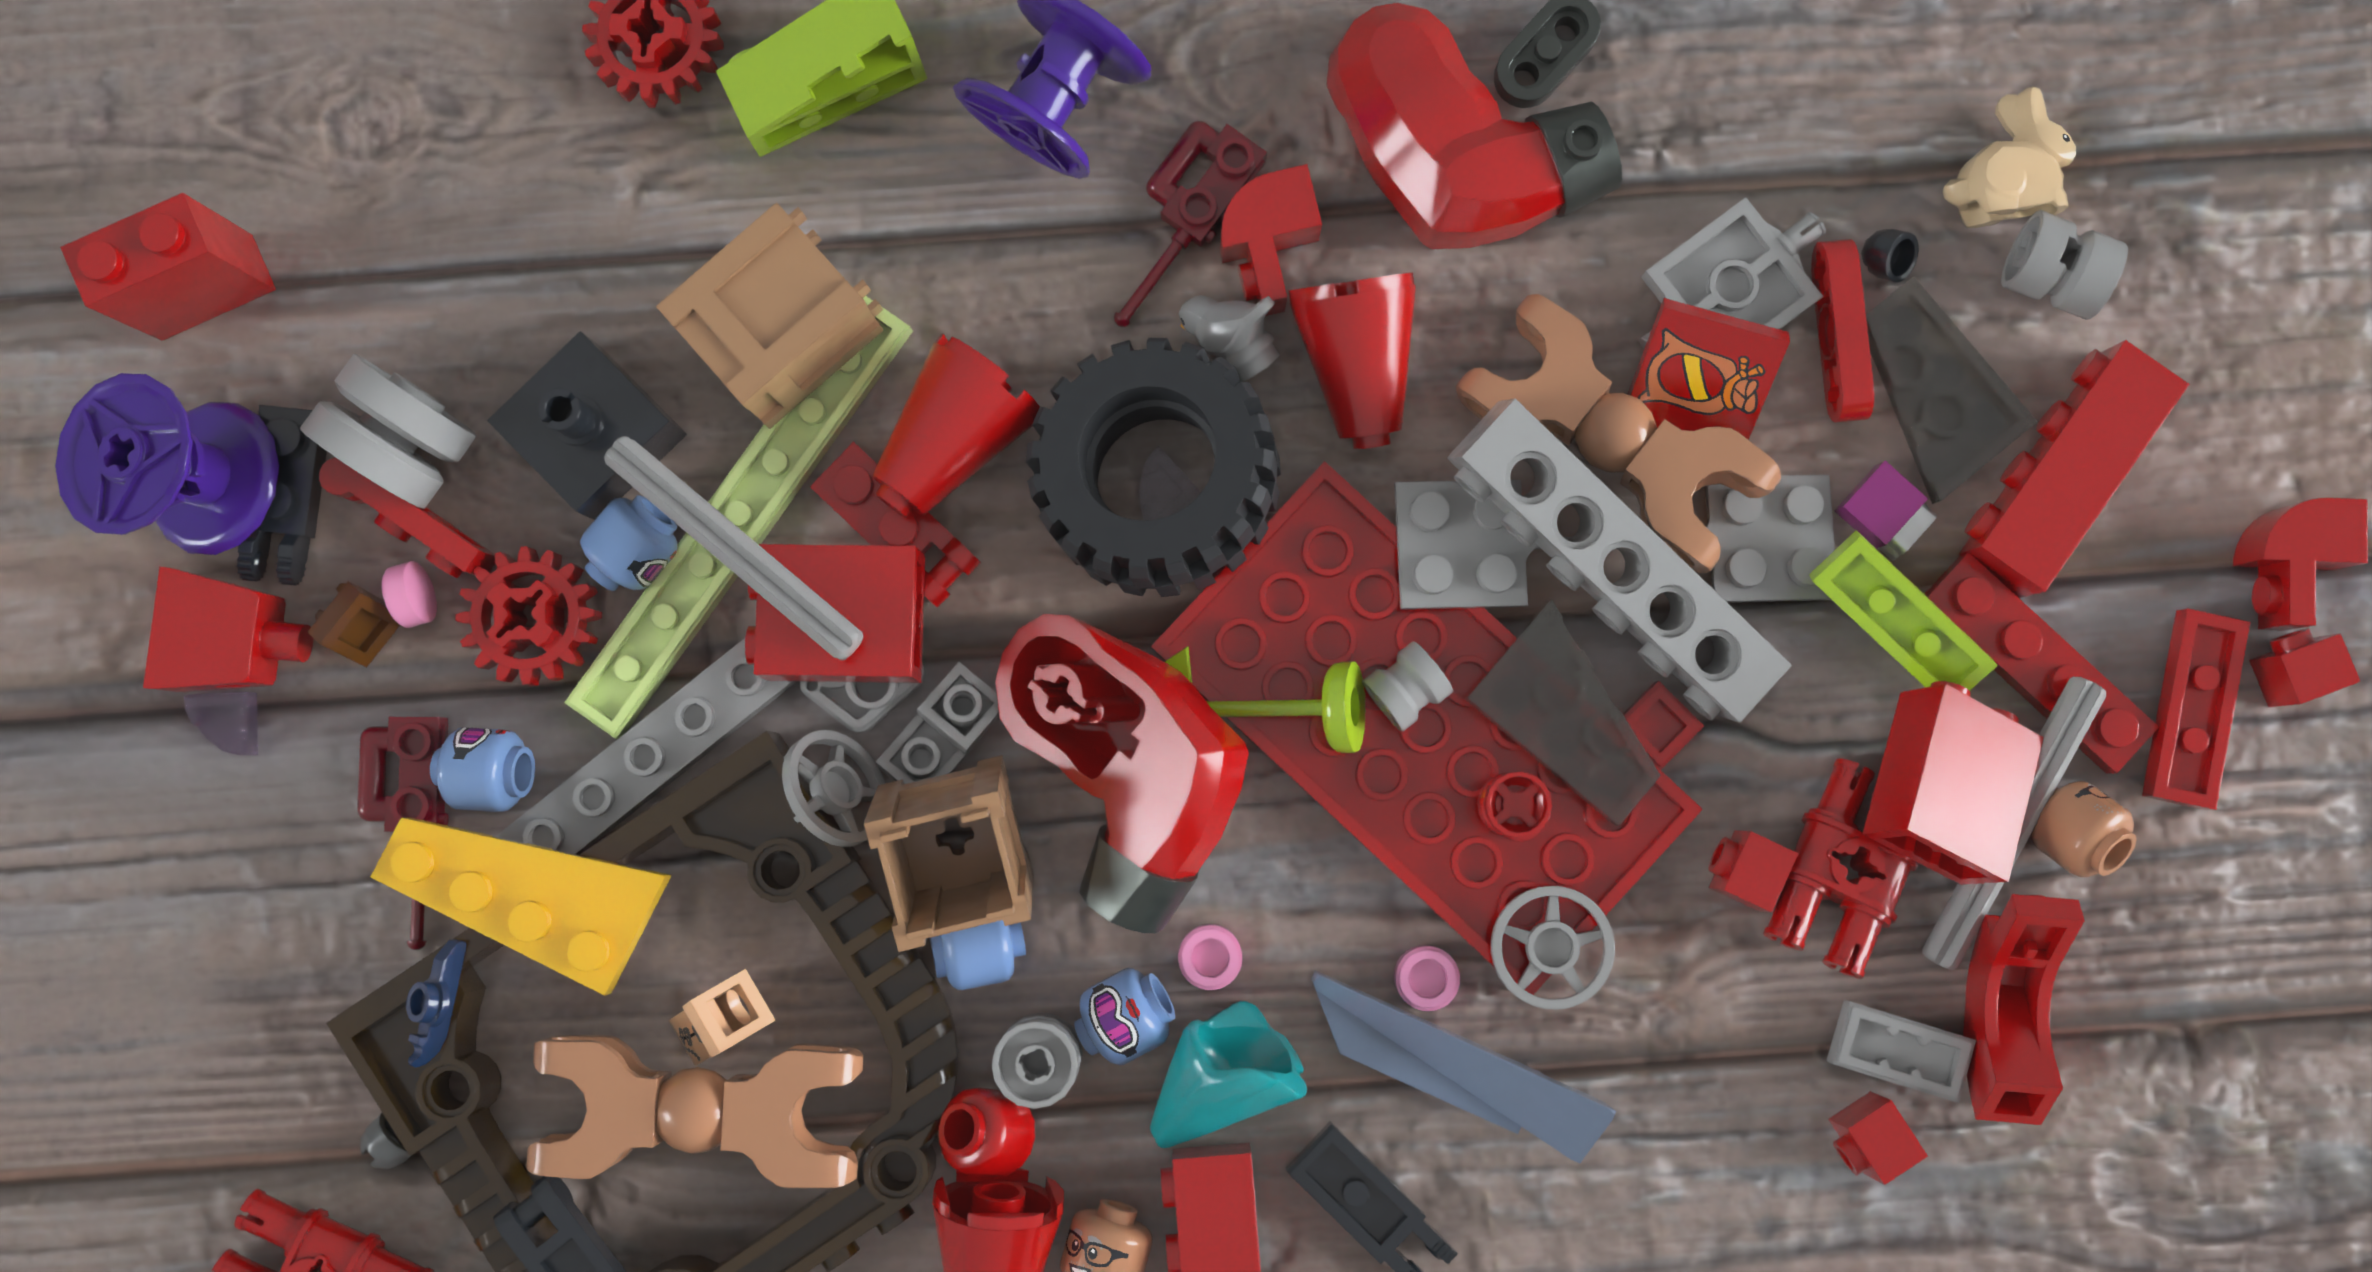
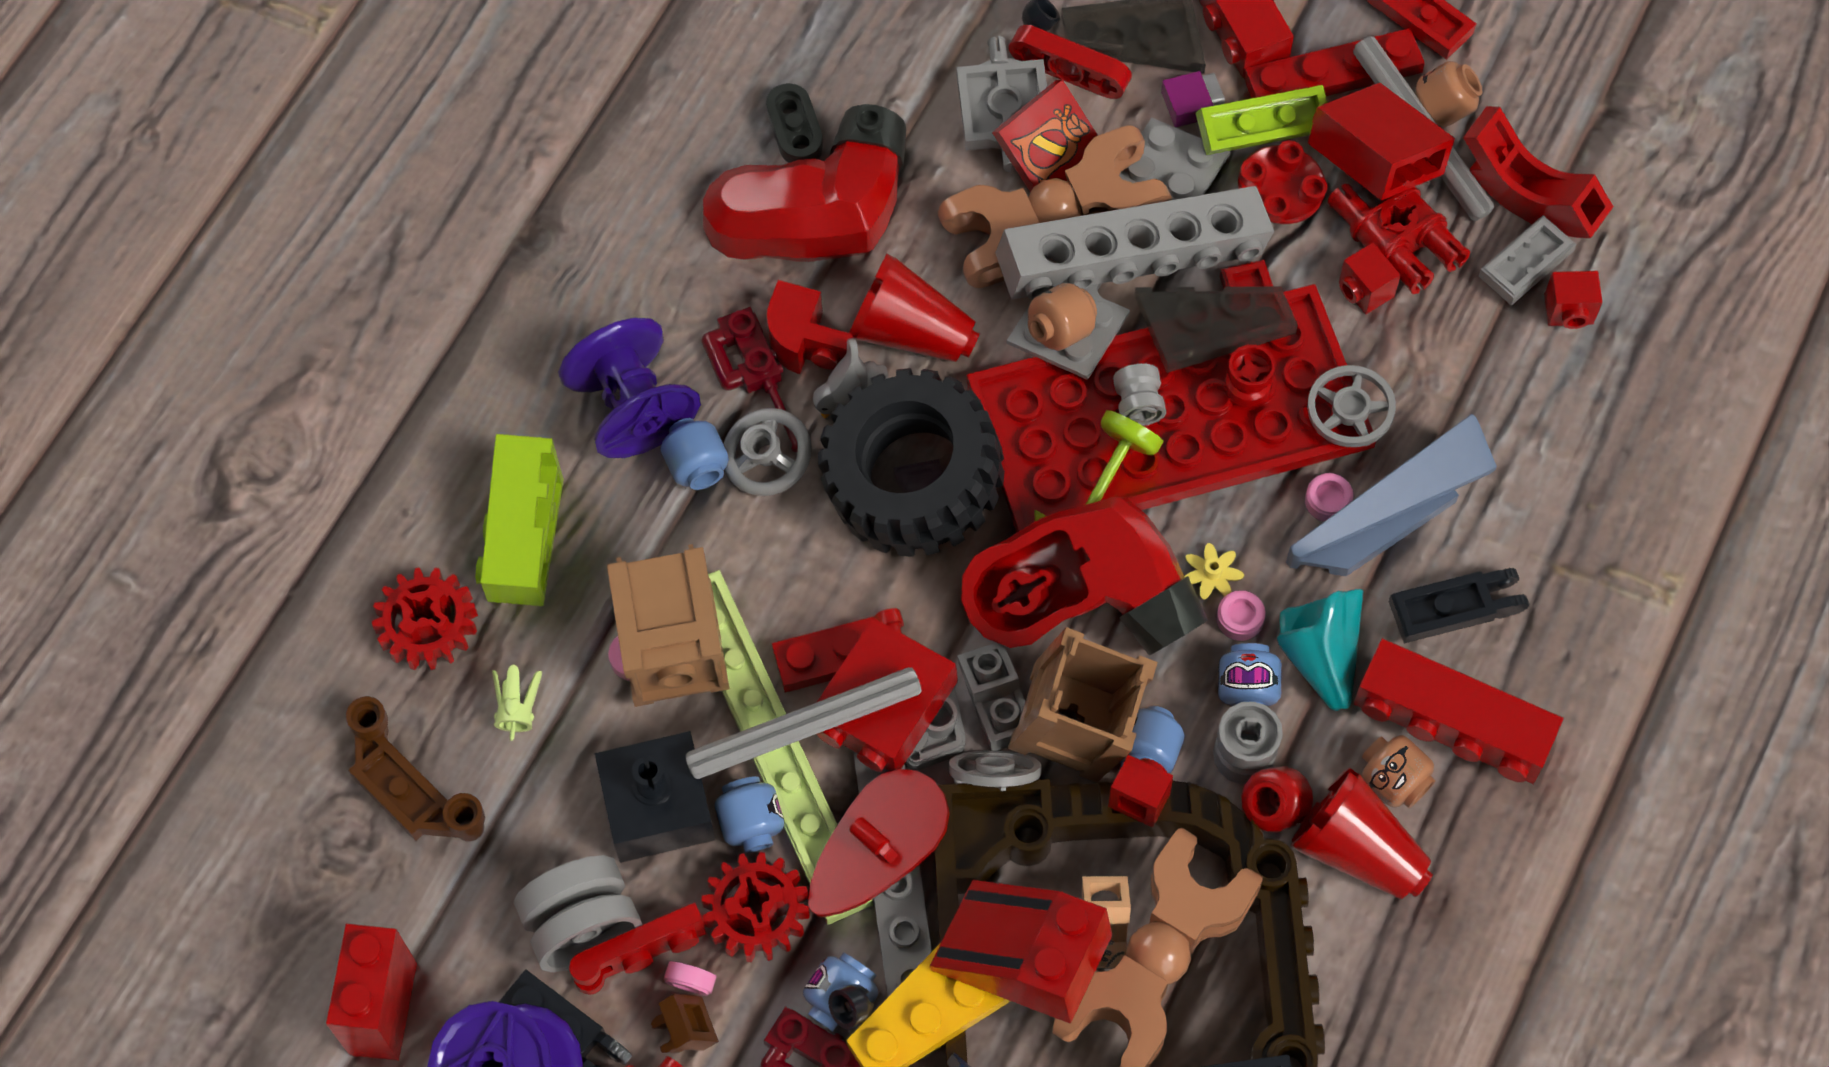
camera: 60 degrees left, 20 degrees down
(445, 800) = (841, 1009): none -> black hinge
(448, 137) = (400, 786): none -> reddish brown plate
(593, 960) = (1025, 945): none -> red slope
(599, 203) = (512, 714): none -> yellowish green piece
(674, 709) = (878, 841): none -> red shield
(884, 980) = (1141, 789): none -> red plate
(949, 427) = (805, 564): red cone -> none
(1030, 207) = (694, 453): none -> medium blue head
(1070, 266) = (755, 437): none -> light grey piece
(1247, 879) = (1209, 577): none -> light yellow plant
(1450, 535) = (1062, 316): none -> nougat head
(1832, 690) = (1286, 180): none -> red dish

